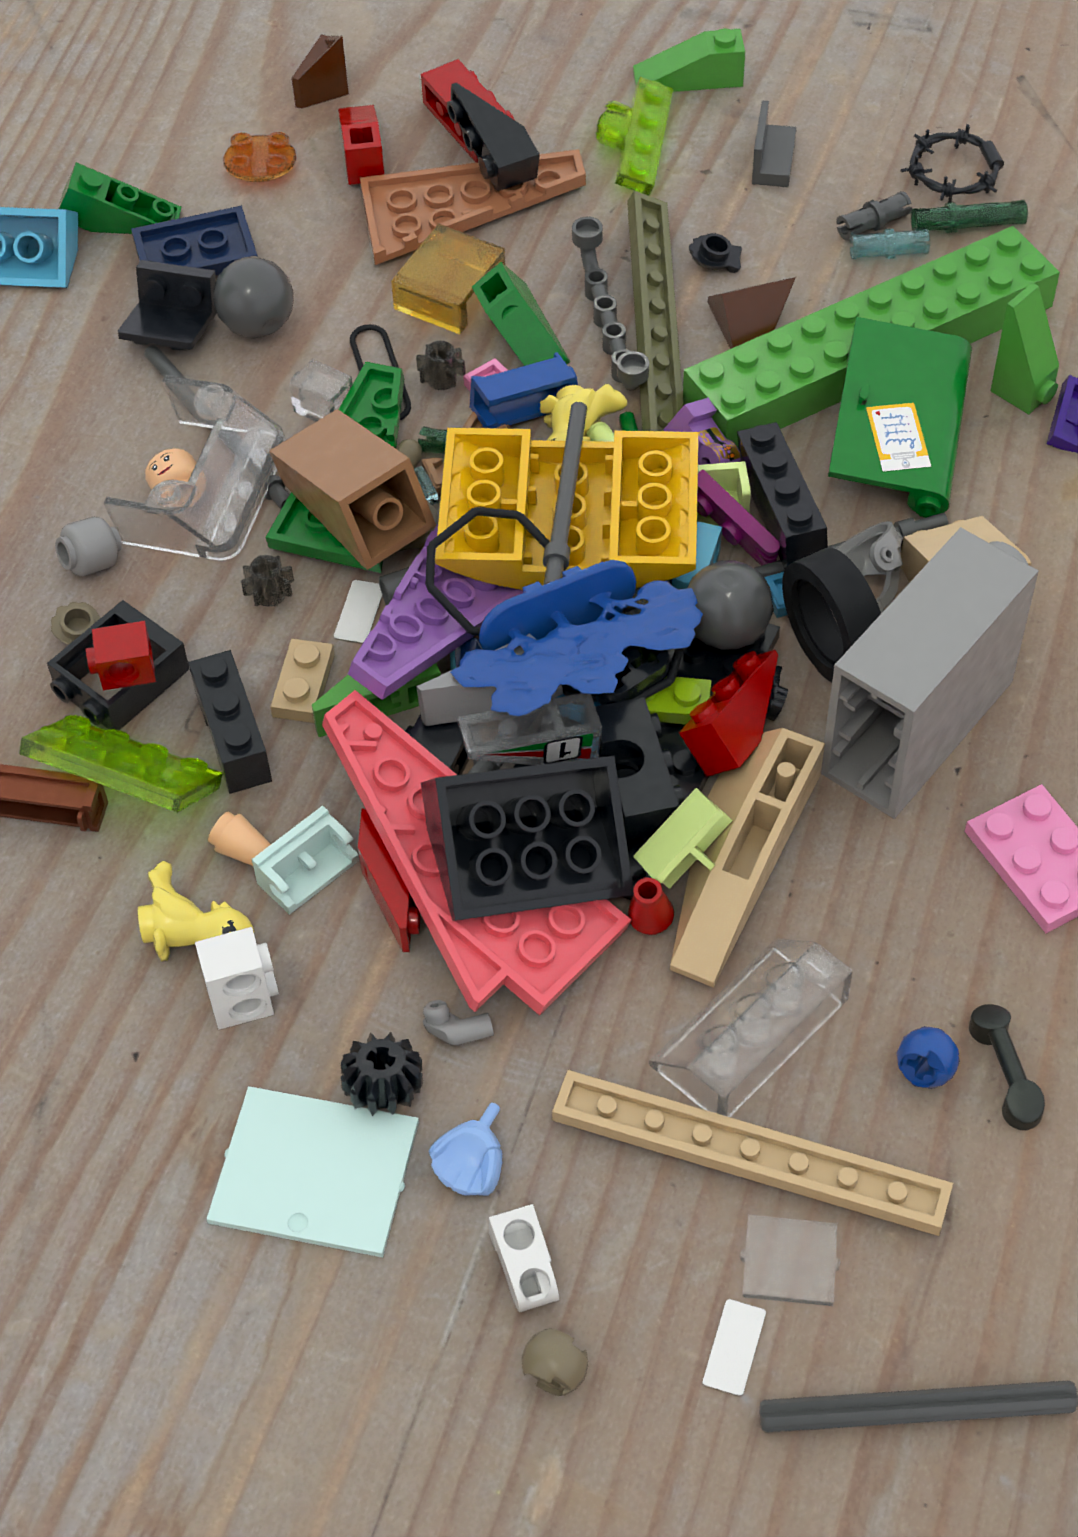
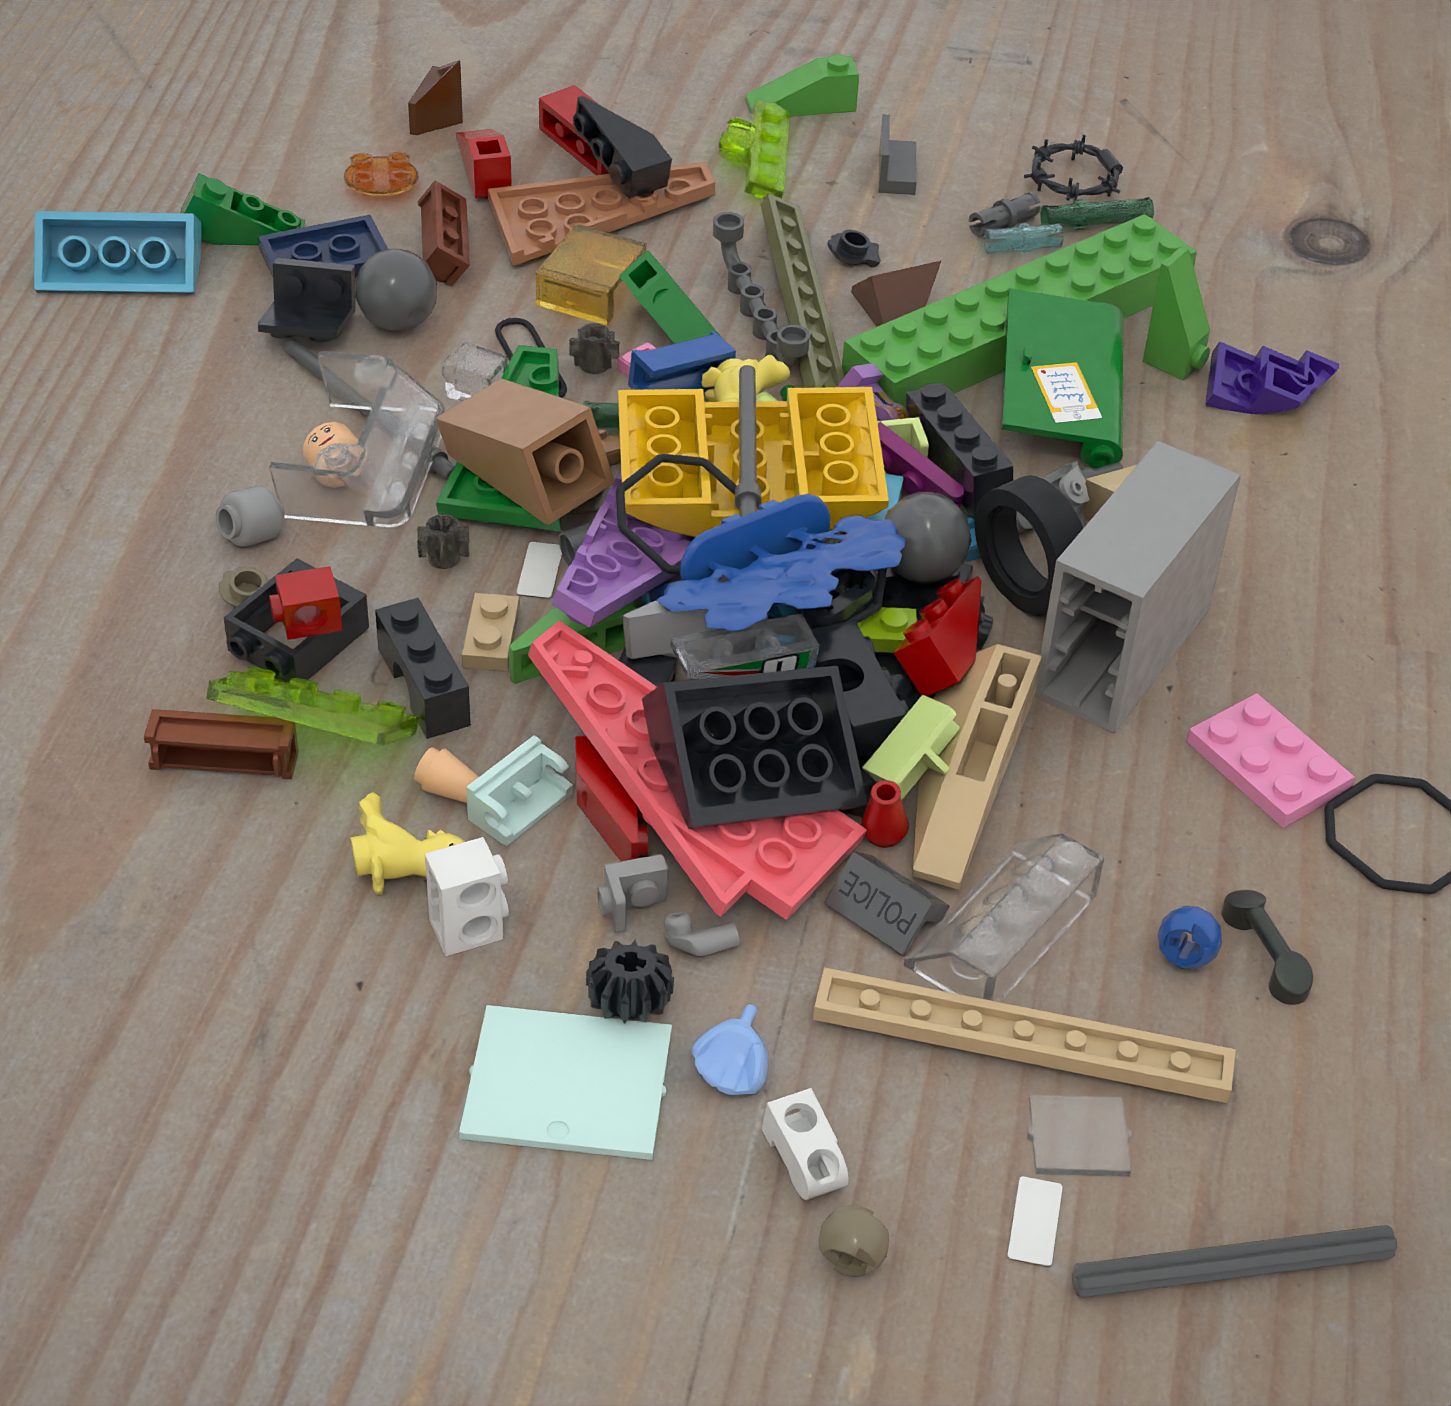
camera: 10 degrees left, 10 degrees down
(311, 229) = (444, 232): none -> copper container
(397, 967) = (630, 885): none -> light grey bracket
(639, 997) = (884, 901): none -> dark grey panel

